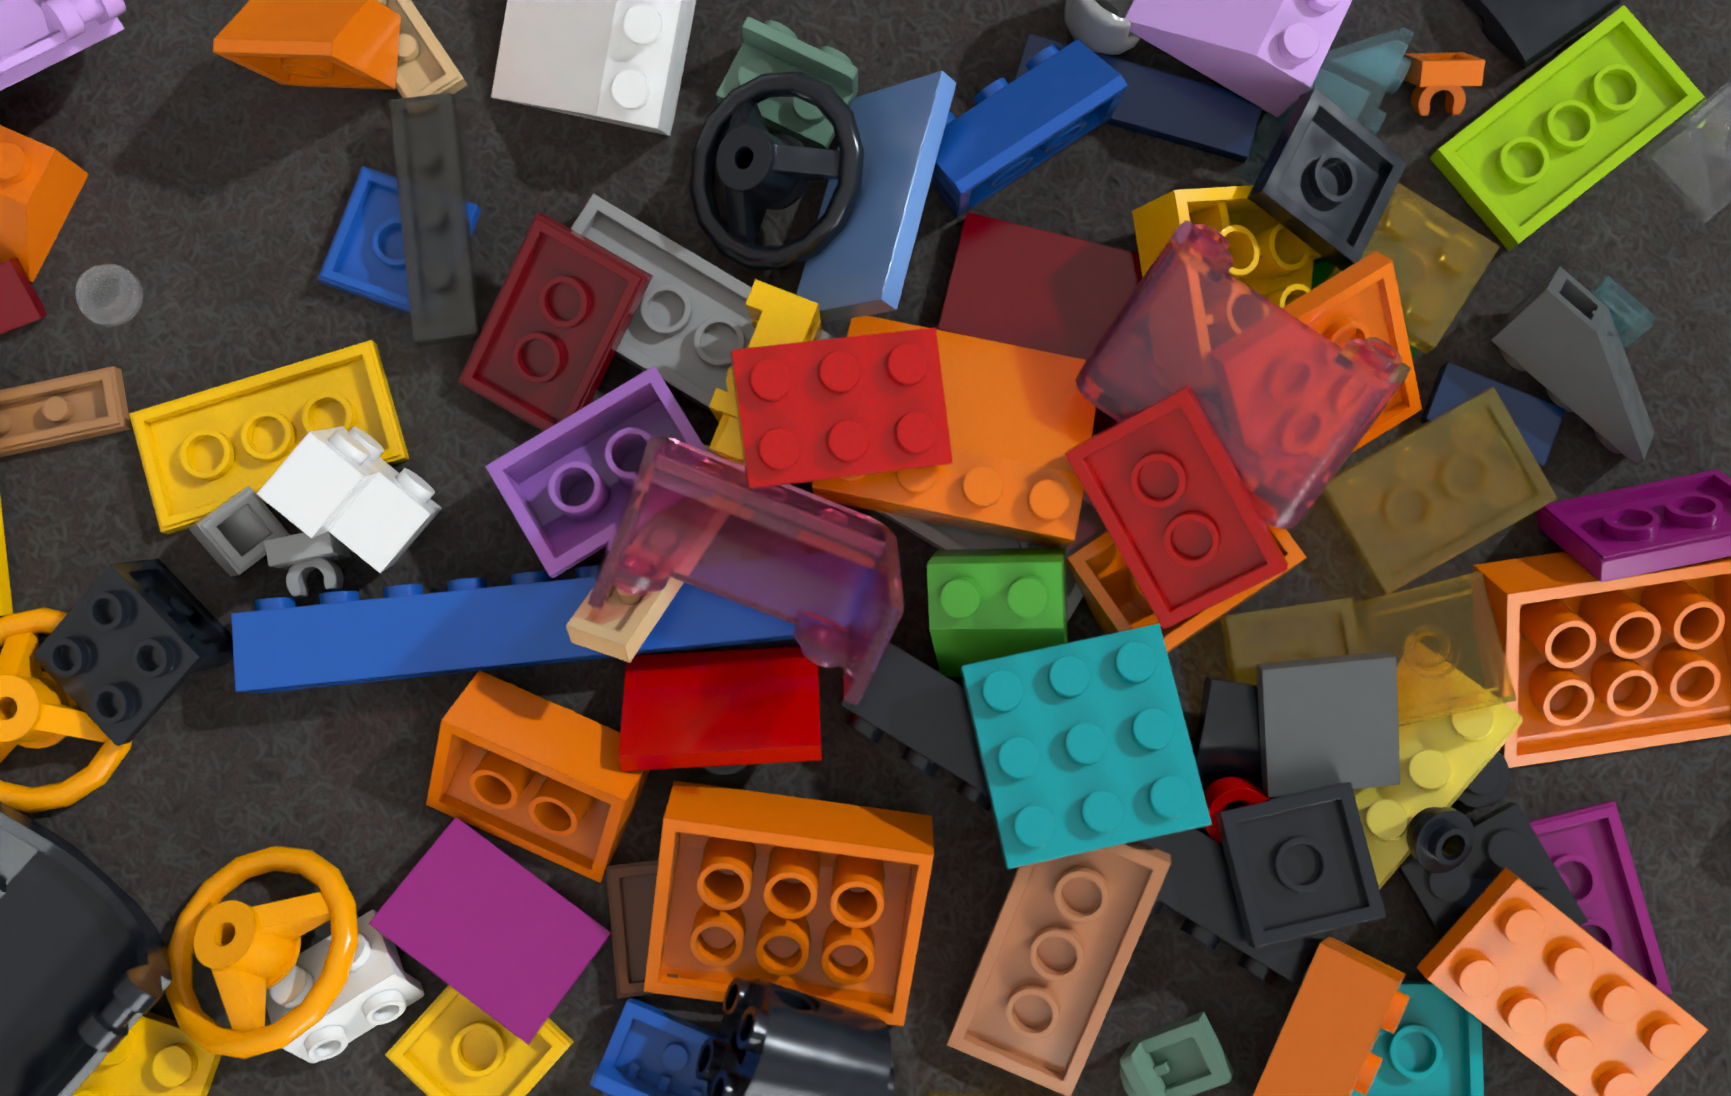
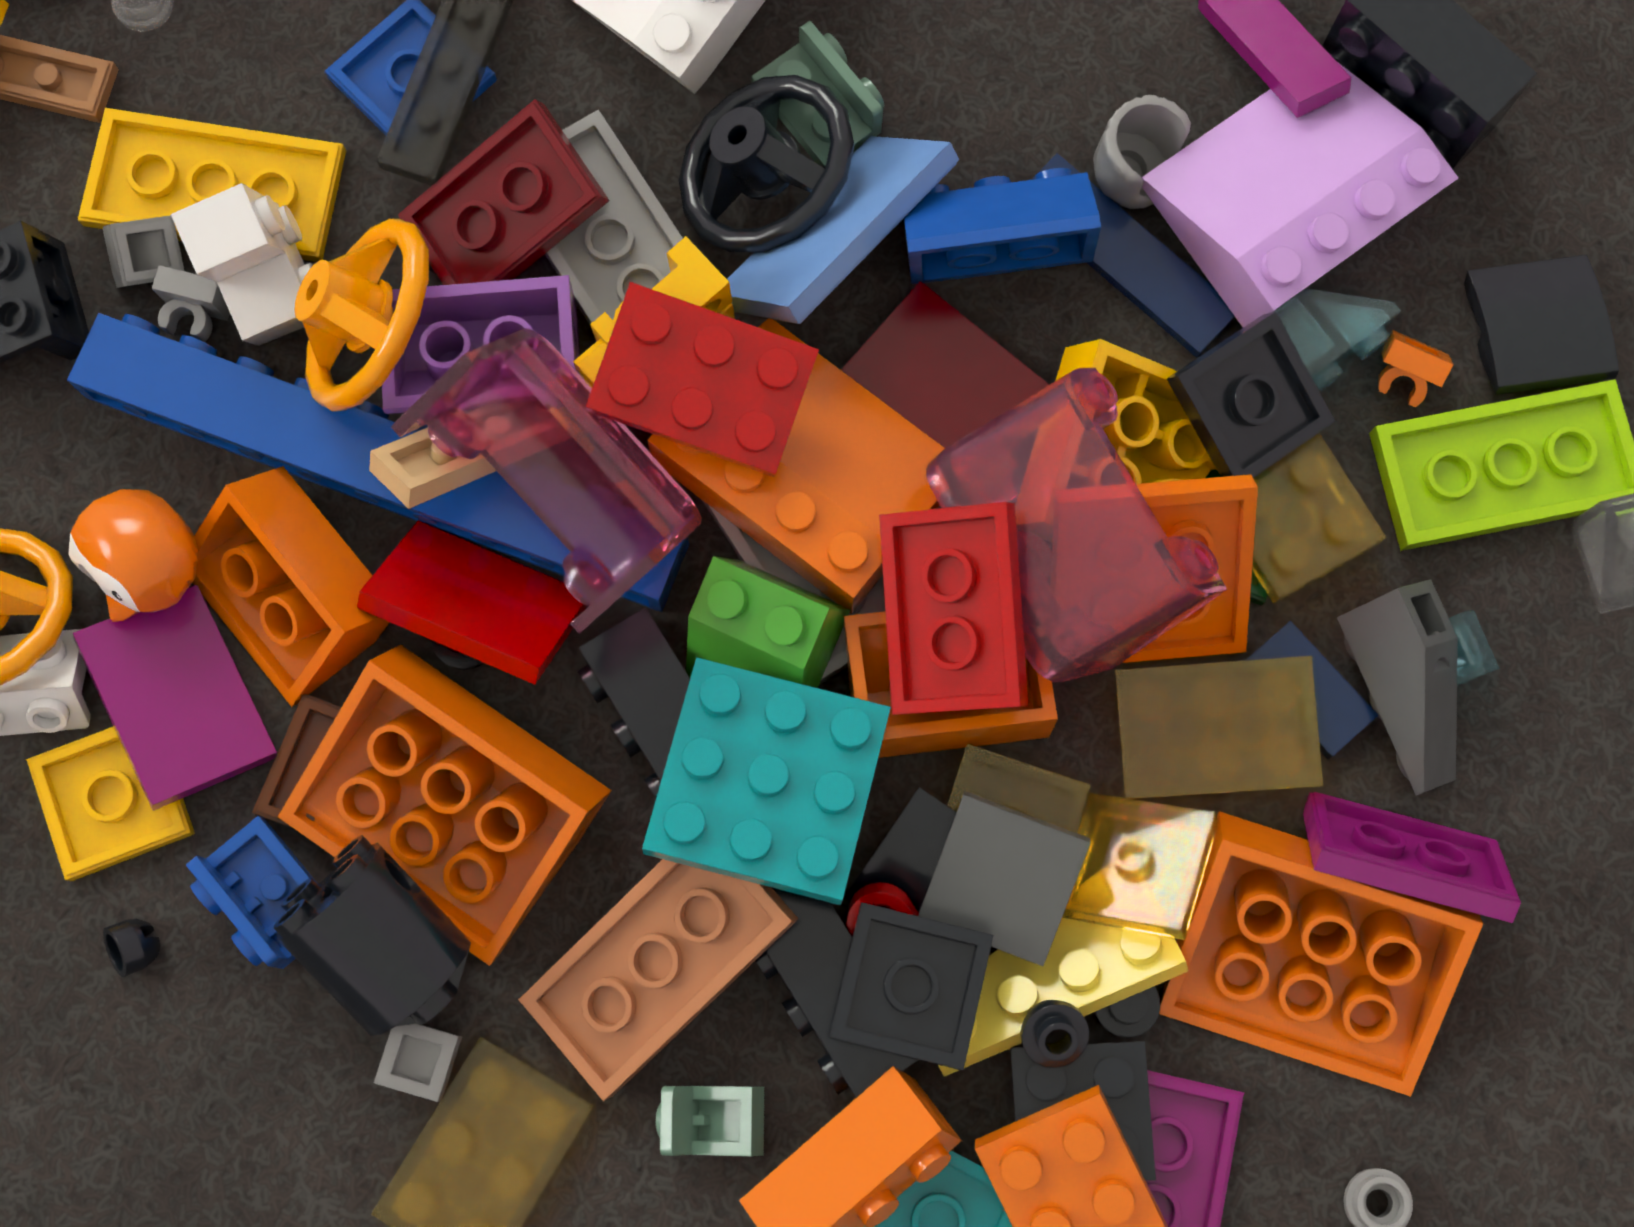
camera: 25 degrees right, 5 degrees down
(387, 820) = (135, 551): none -> orange piece
(476, 494) = (353, 306): none -> light orange piece

